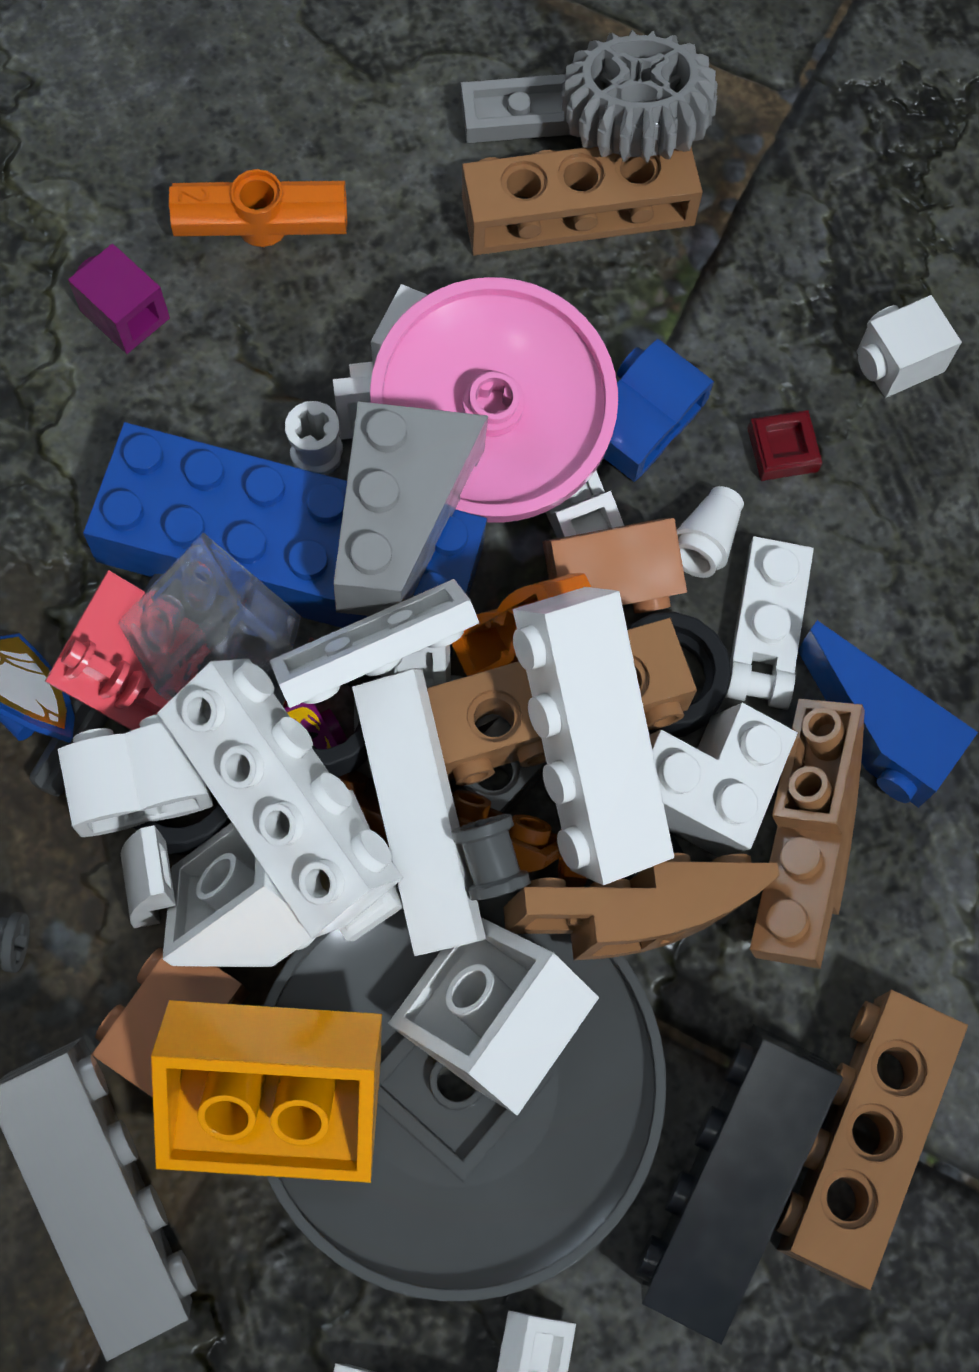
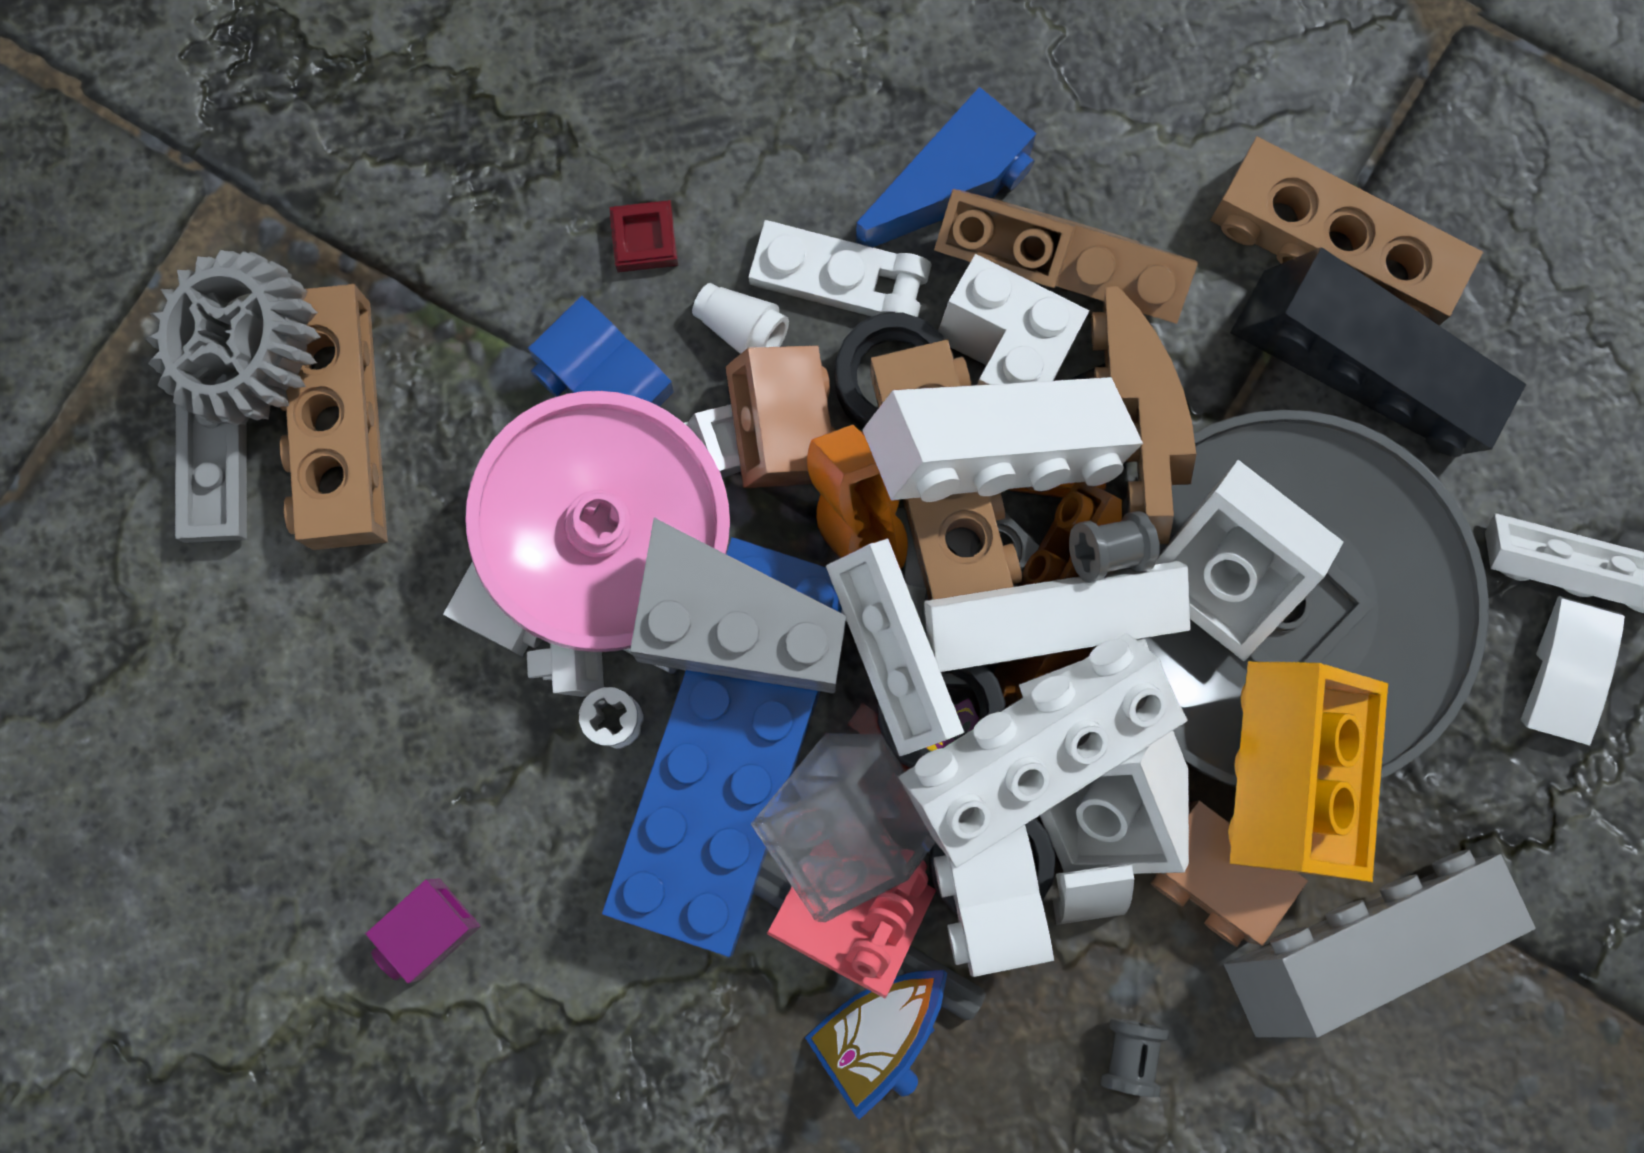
camera: 80 degrees left, 10 degrees up
(231, 207) = (320, 727): orange piece -> none
(907, 345) = (545, 99): white brick -> none

